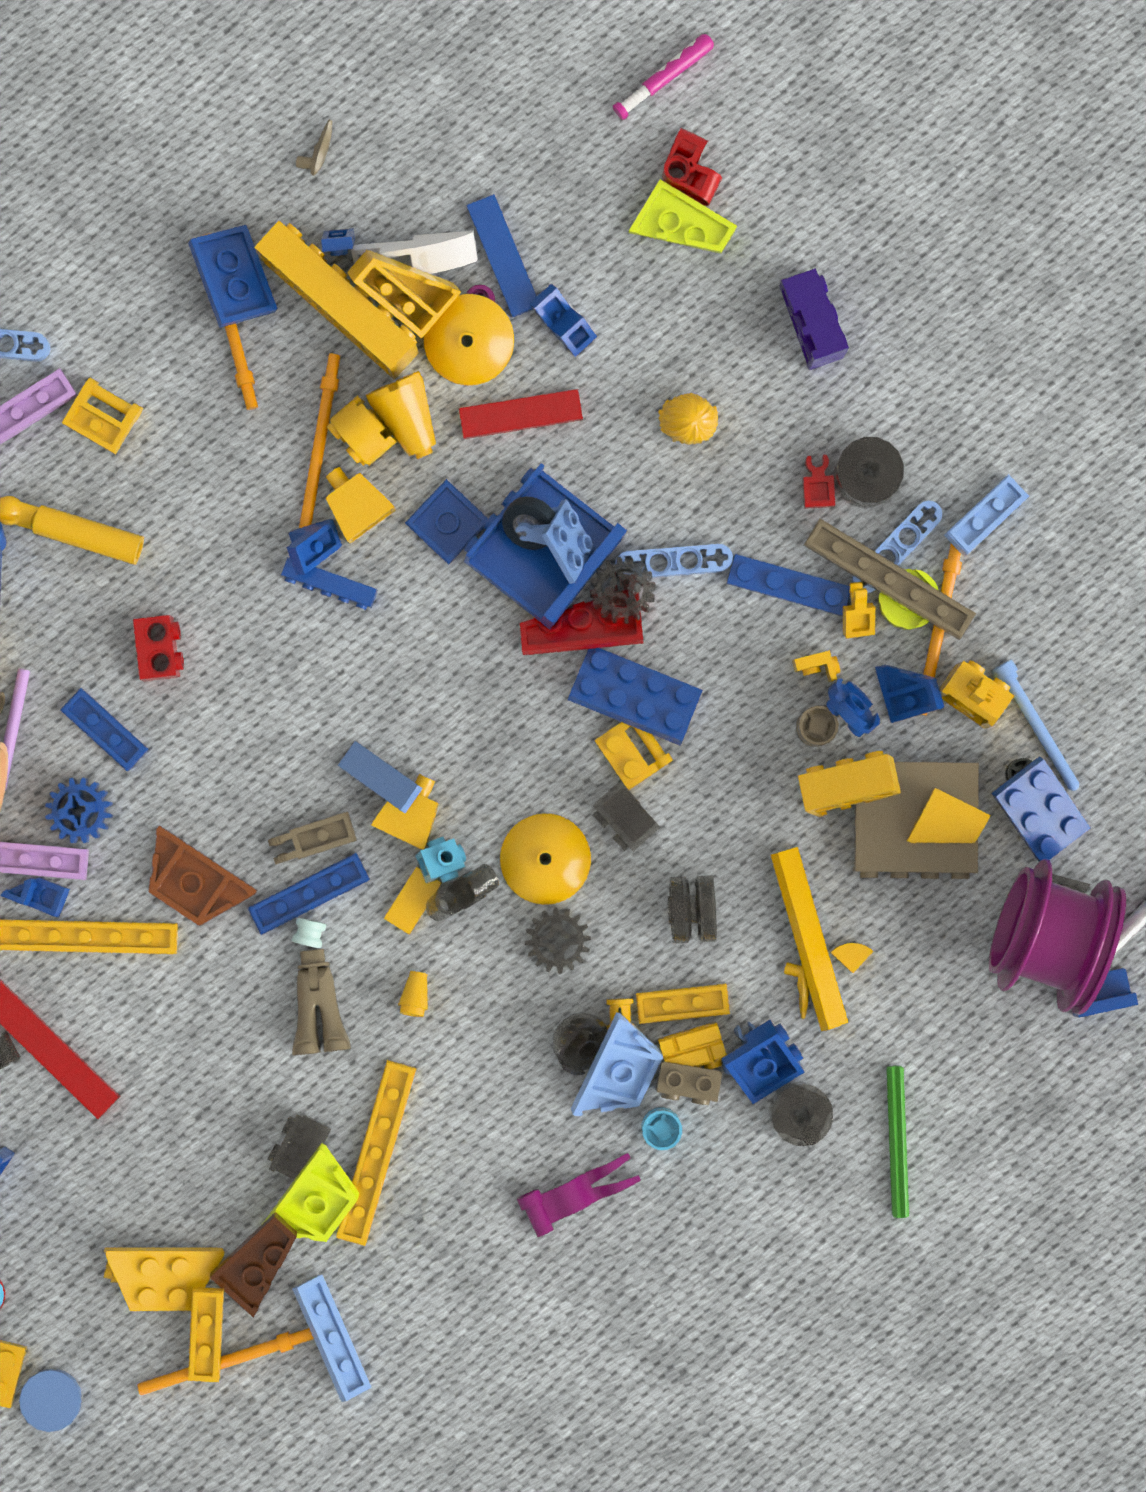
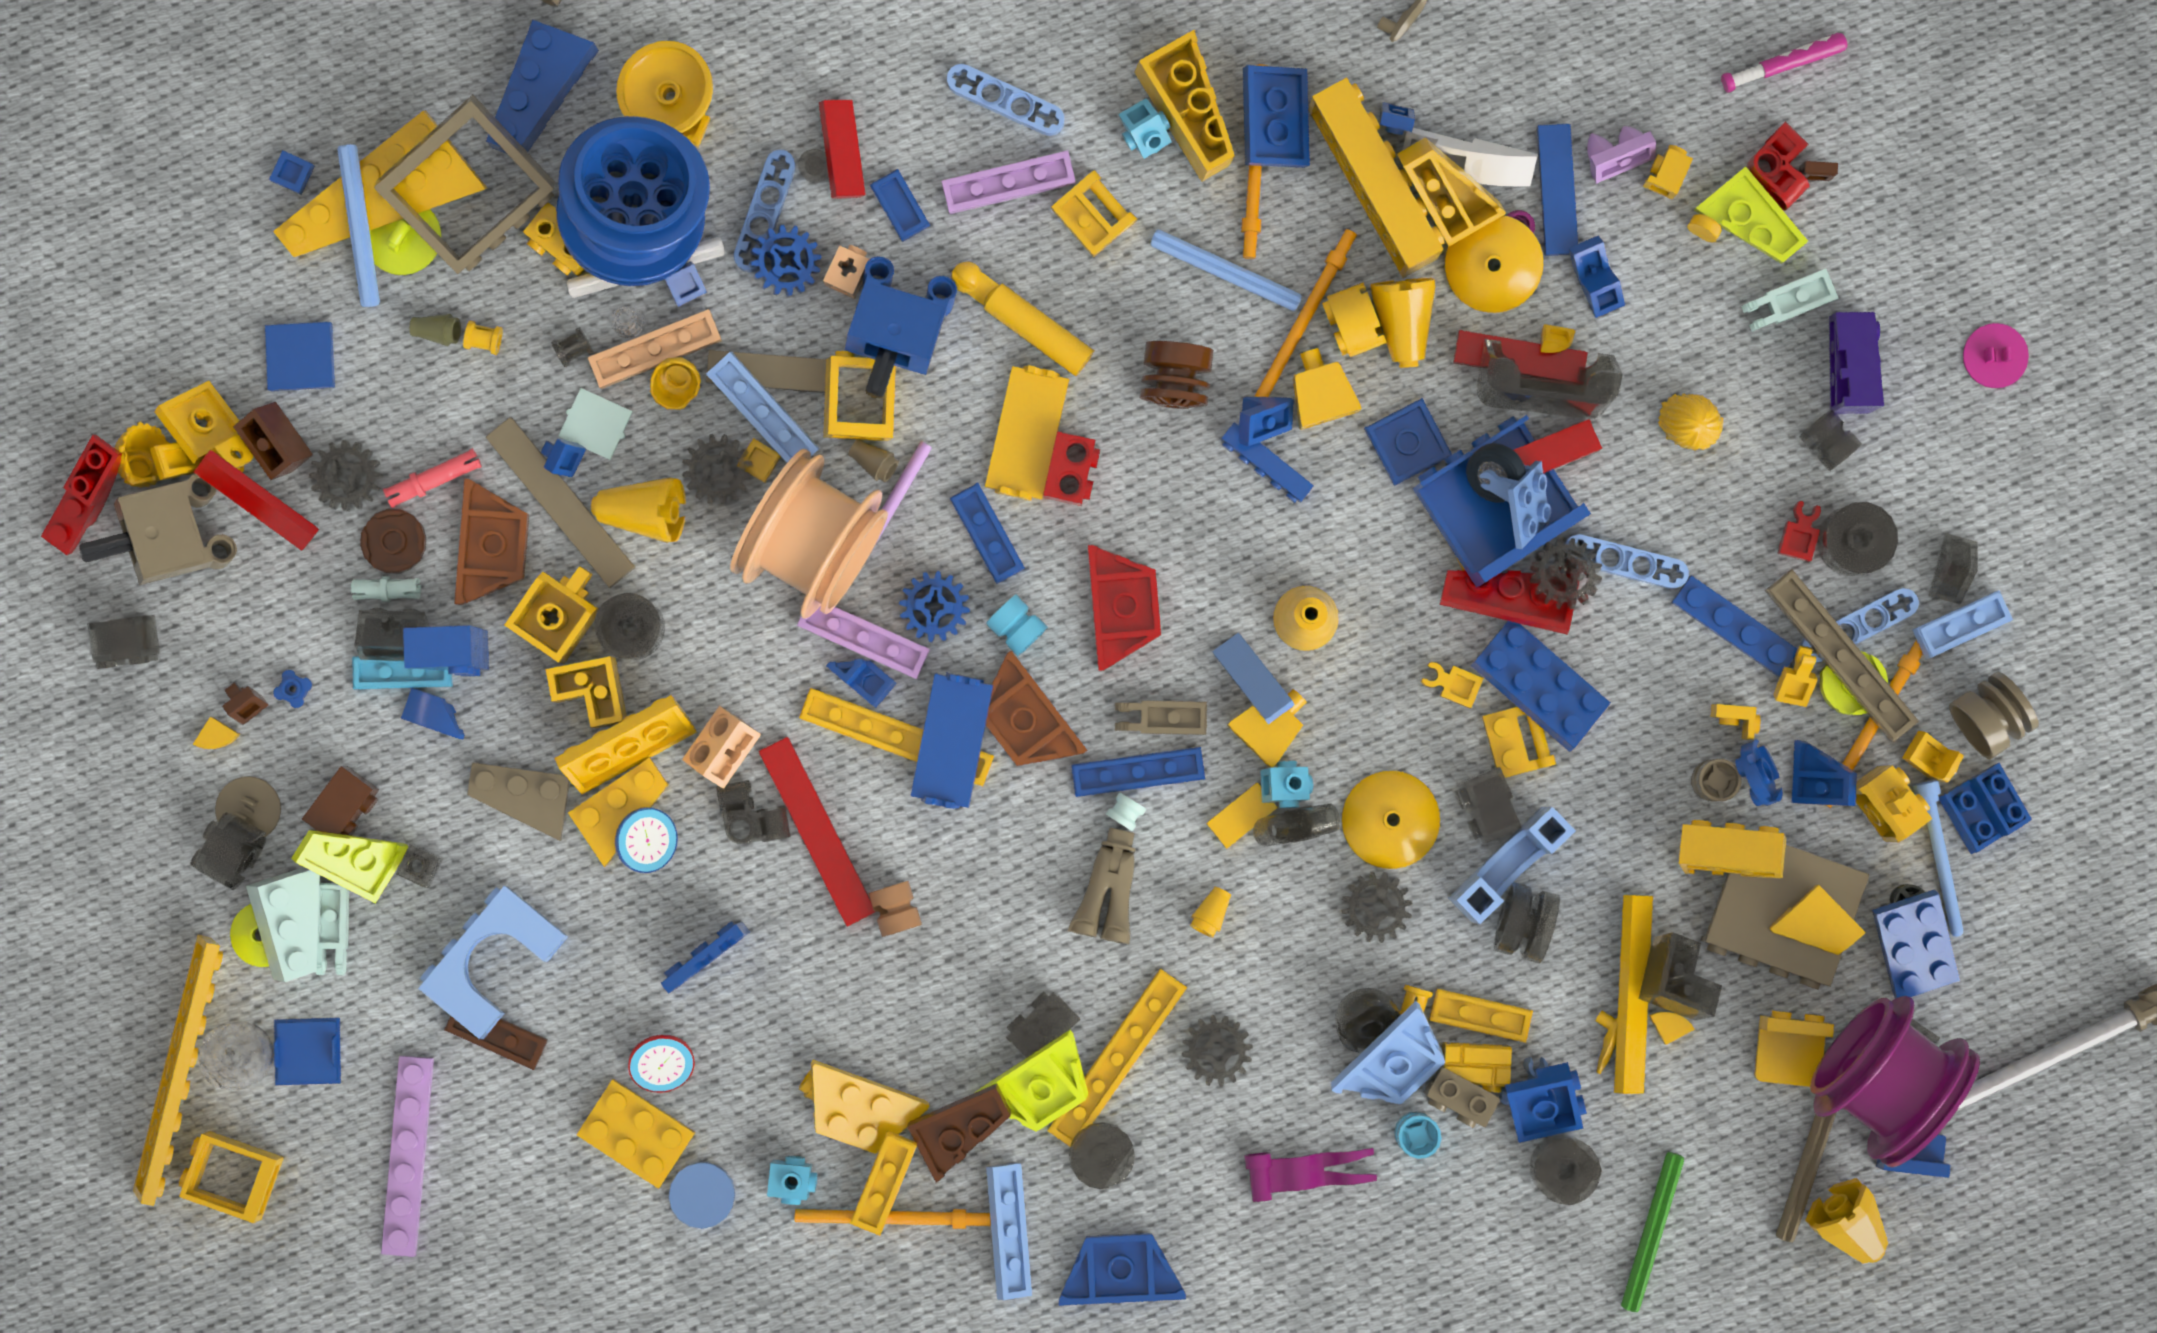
camera: 25 degrees right, 0 degrees up
(108, 628) = (1027, 432): none -> yellow brick
(115, 1367) = (781, 1187): none -> medium azure brick
(120, 325) = (1145, 128): none -> medium azure brick
(133, 923) = (952, 740): none -> blue brick
(134, 1088) = (895, 908): none -> medium nougat wheel
(149, 290) = (1181, 89): none -> yellow wedge
(154, 800) = (1016, 625): none -> medium azure wheel
(220, 532) = (1176, 374): none -> reddish brown wheel
(235, 425) = (1226, 270): none -> light blue axle
(244, 752) = (1122, 605): none -> red wing
(391, 1242) = (1101, 1155): none -> clear smoke tile
(417, 719) = (1295, 628): none -> yellow cone
(443, 1338) = (1120, 1271): none -> blue wing
(454, 1102) = (1218, 1064): none -> clear smoke gear
(517, 447) = (1503, 387): none -> clear smoke windscreen
(542, 213) = (1611, 160): none -> lavender tile
(546, 386) = (1556, 338): none -> yellow tile
(564, 720) = (1457, 686): none -> yellow plate
(582, 481) = (1561, 447): none -> red tile
(594, 206) = (1668, 172): none -> yellow brick
(643, 245) = (1704, 227): none -> yellow tile
(660, 862) = (1483, 889): none -> light blue arch
(725, 161) = (1819, 170): none -> reddish brown tile
(742, 281) = (1794, 299): none -> light aqua hinge
(815, 393) = (1830, 440): none -> clear smoke wheel
(838, 917) = (1671, 979): none -> clear smoke brick
(936, 270) = (1995, 355): none -> dark pink piece
(962, 938) = (1790, 1047): none -> yellow bracket
(963, 469) = (1954, 569): none -> clear smoke slope
(999, 641) = (1932, 757): none -> yellow bracket
(1014, 1046) = (1804, 1177): none -> dark tan axle
(1043, 579) = (1994, 715): none -> dark tan wheel
(1061, 669) = (1985, 808): none -> blue slope
(1066, 1073) = (1850, 1221): none -> yellow cone

